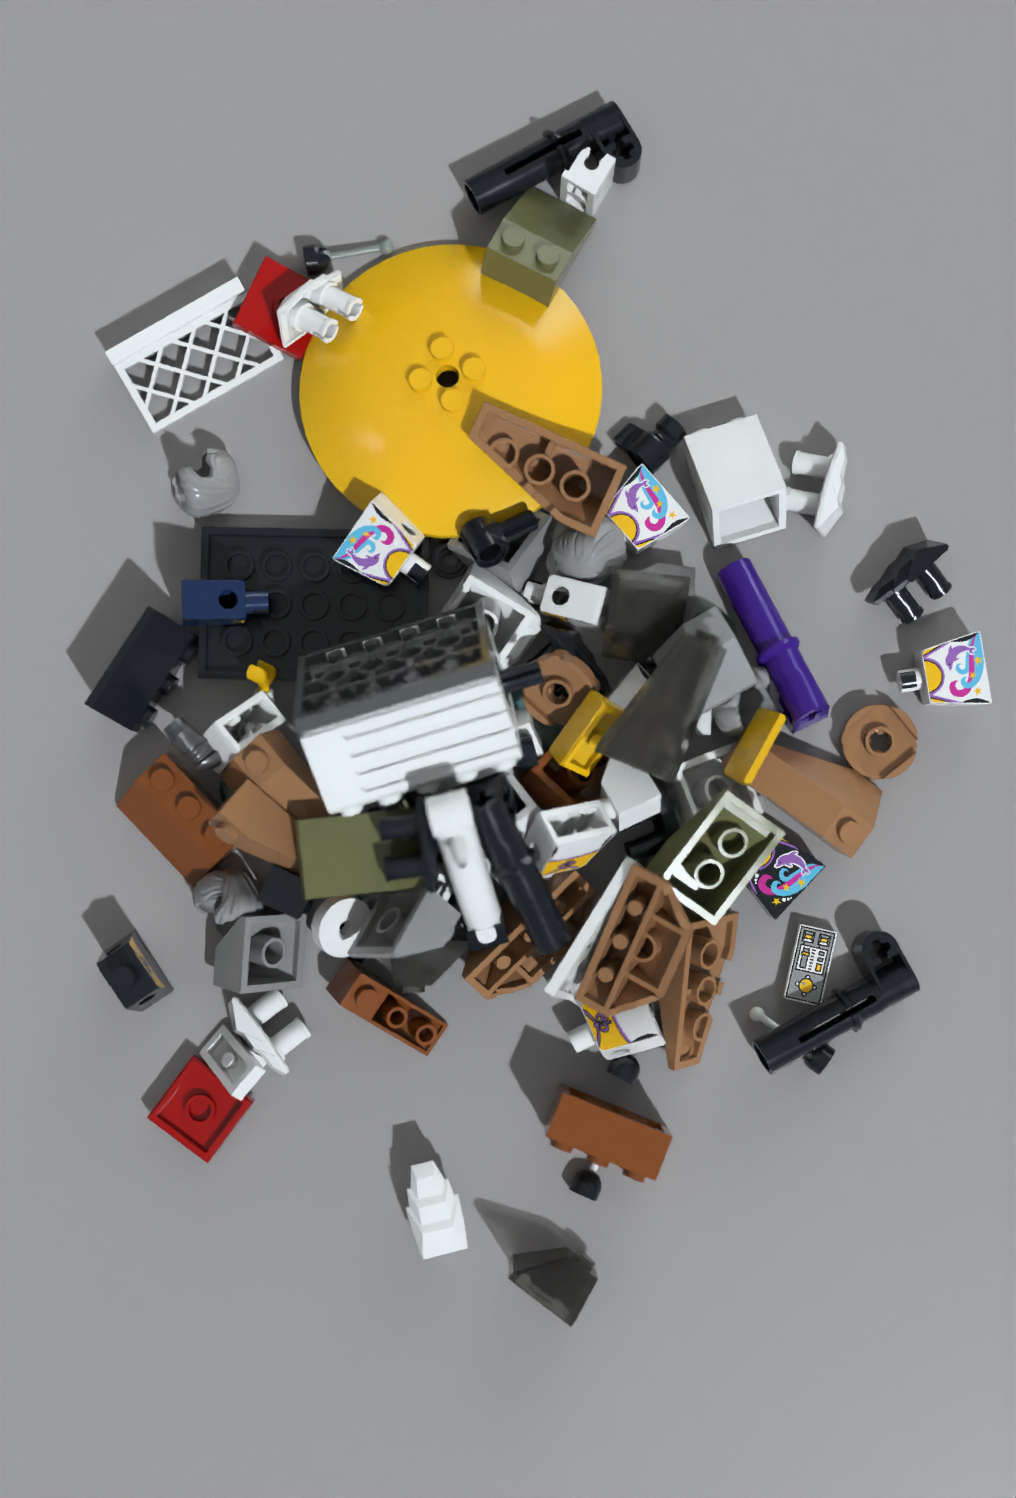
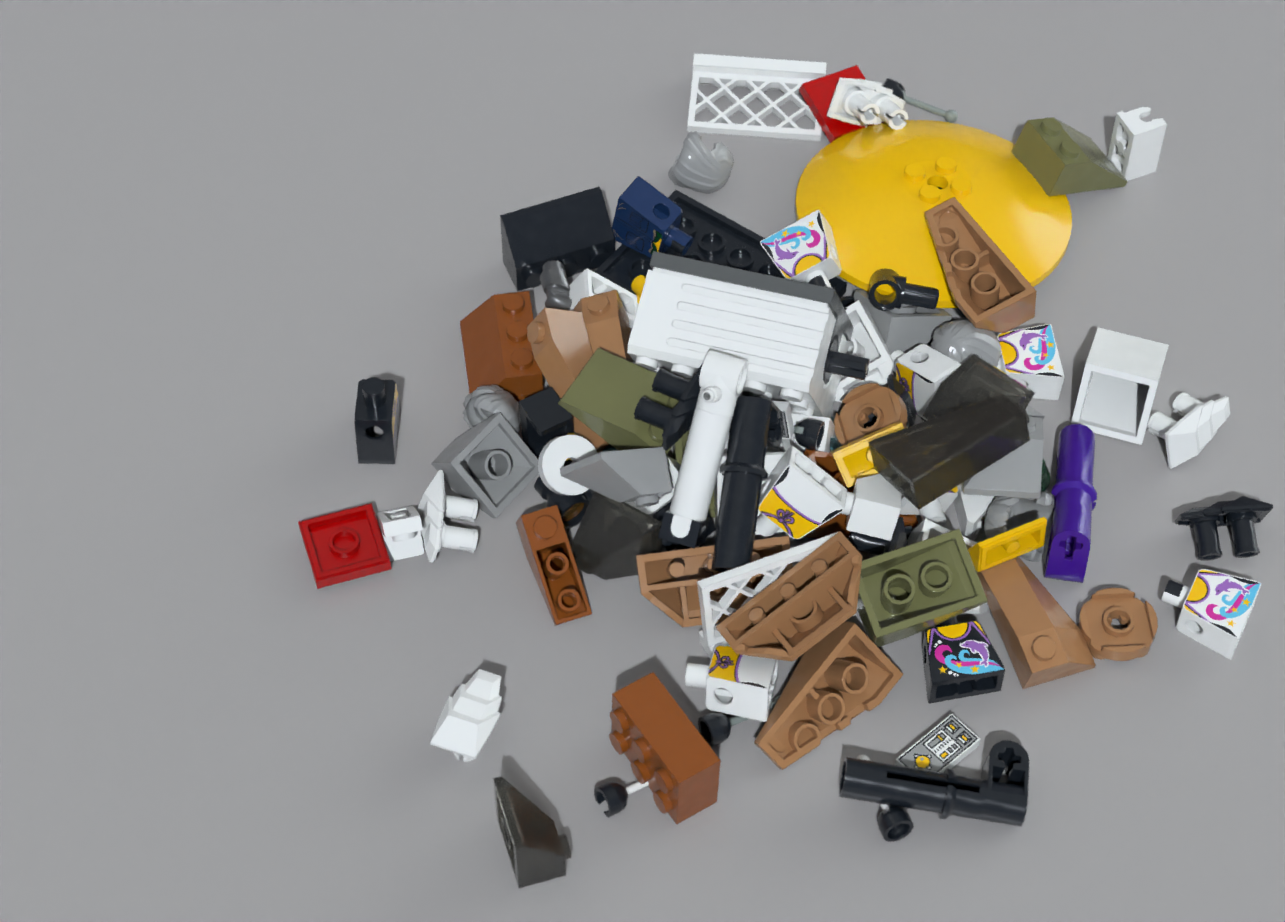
camera: 30 degrees right, 35 degrees down
(554, 154) = (1099, 121): black piece -> none
(650, 447) = (1069, 328): black piece -> none

